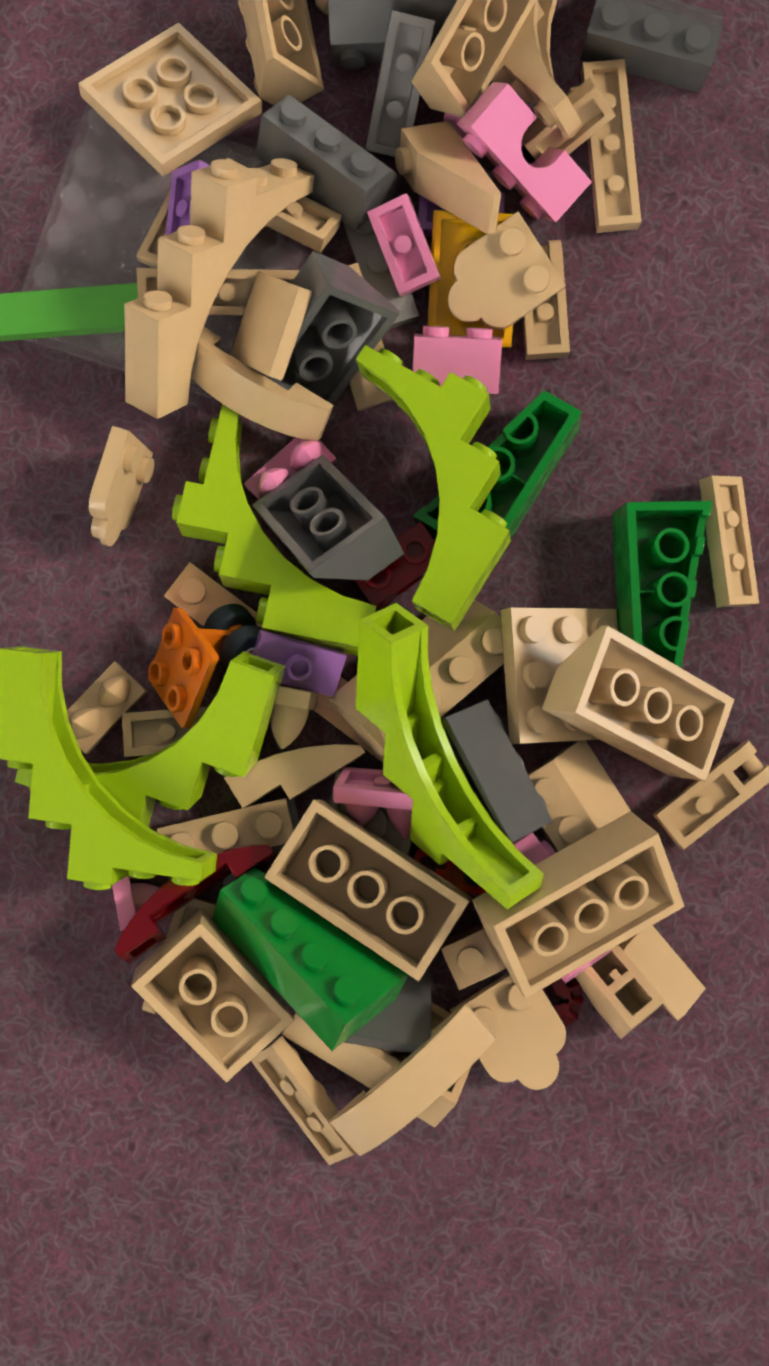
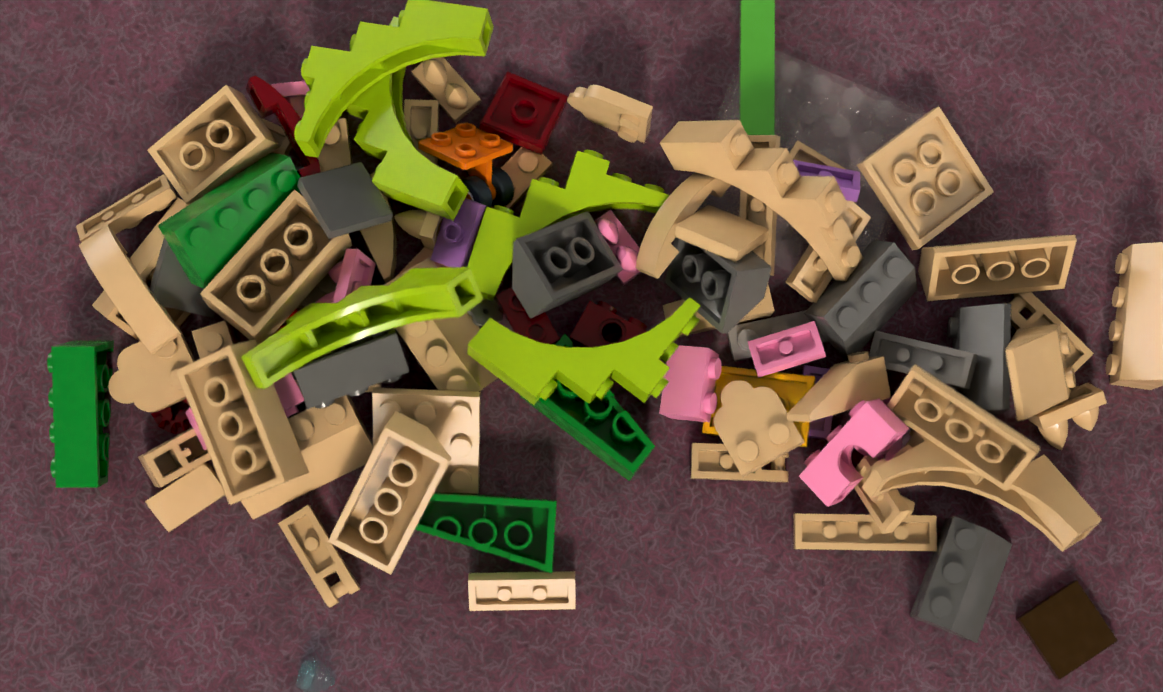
camera: 95 degrees right, 5 degrees down
(128, 603) = (524, 113): none -> dark red tile
(271, 810) = (344, 200): none -> dark grey tile
(396, 490) = (598, 318): none -> dark red brick
(573, 1122) = (80, 413): none -> green wedge

